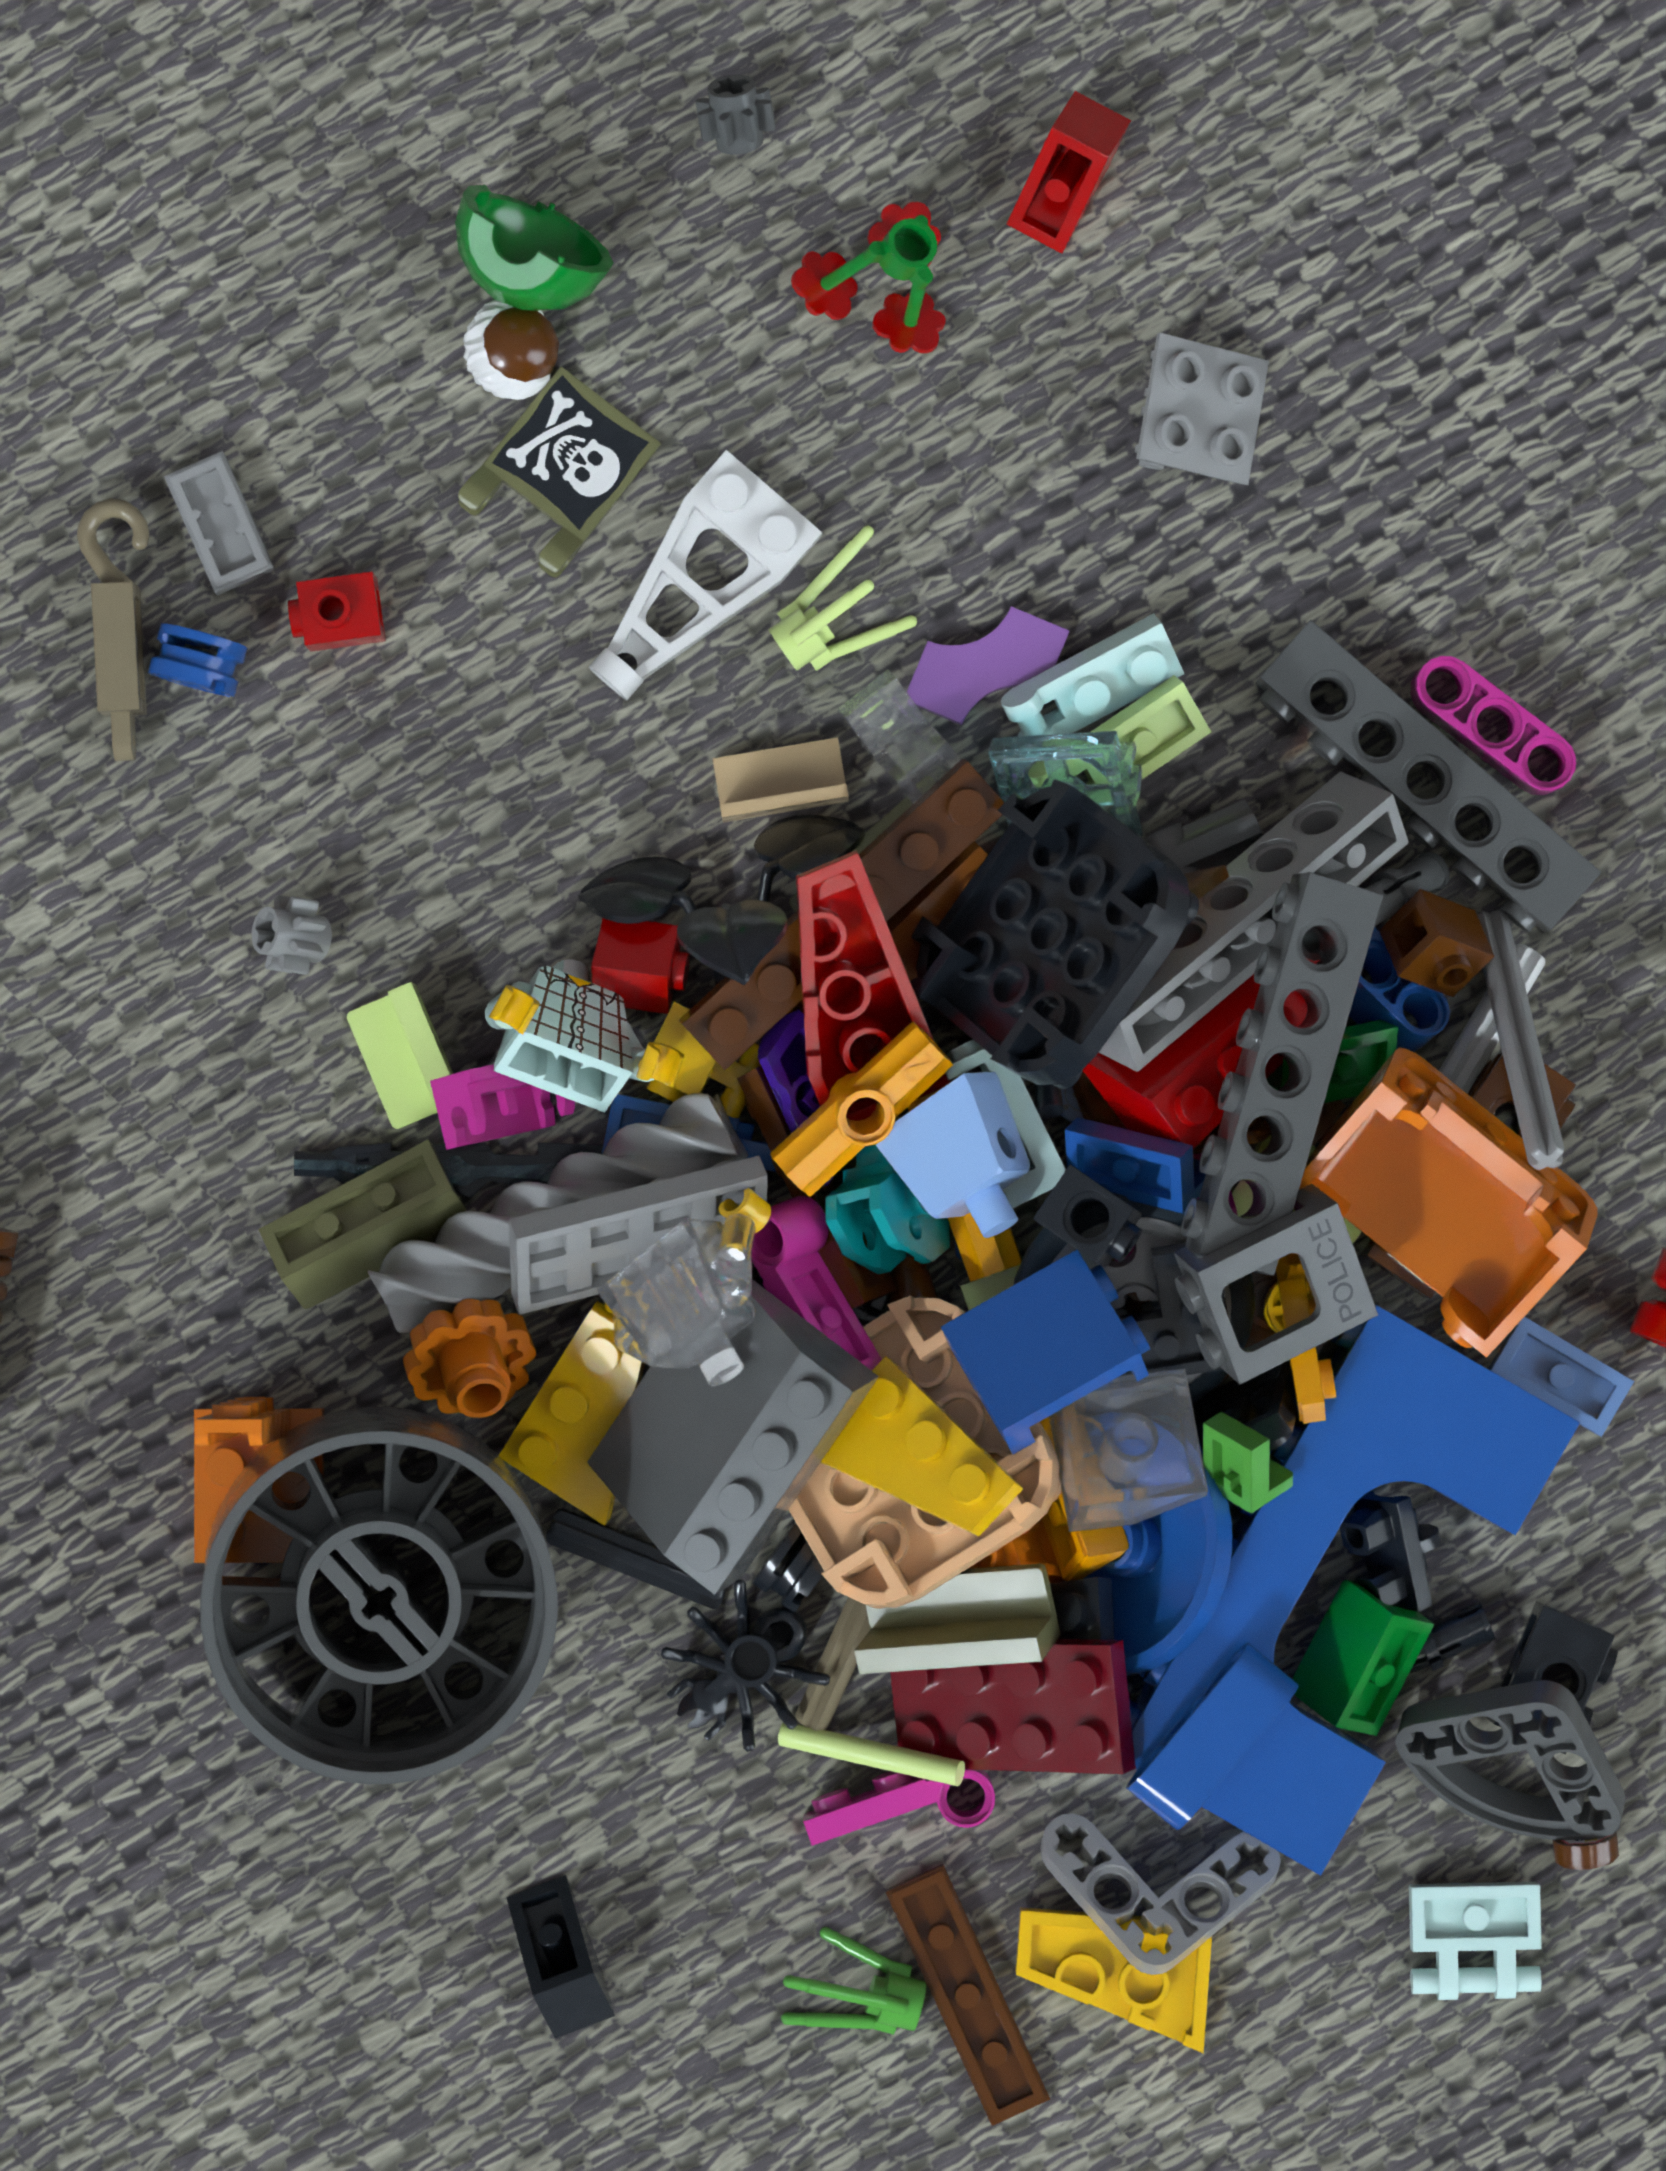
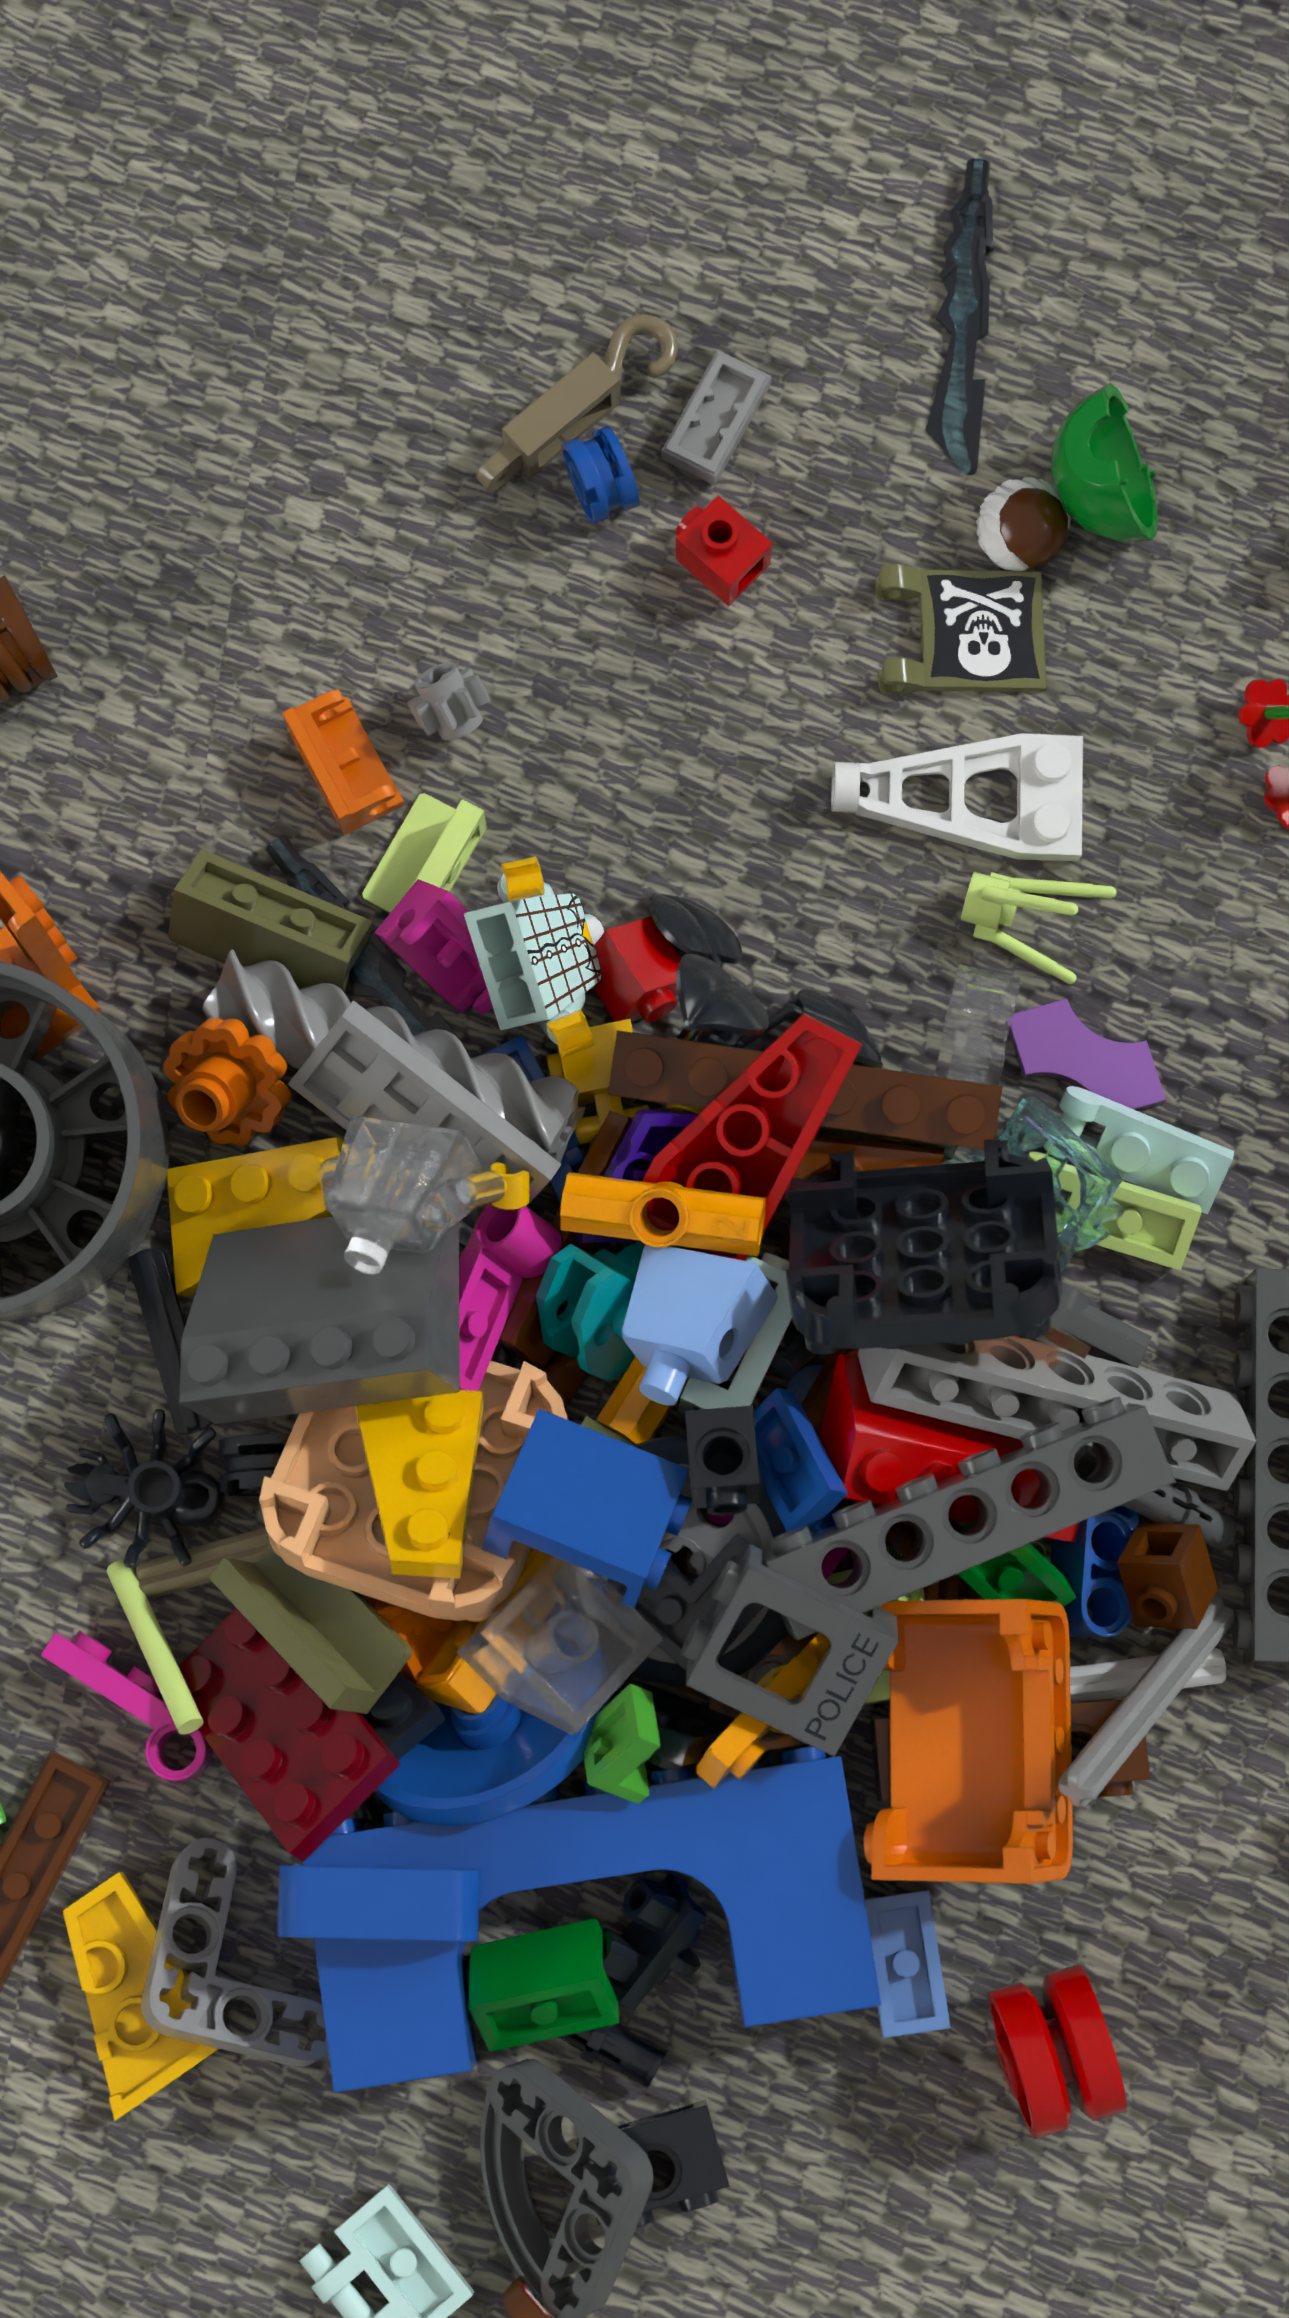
camera: 50 degrees right, 10 degrees down
(272, 1056) = (342, 760): none -> orange hinge
(292, 245) = (965, 314): none -> black sword
(780, 780) = (866, 973): tan panel -> none

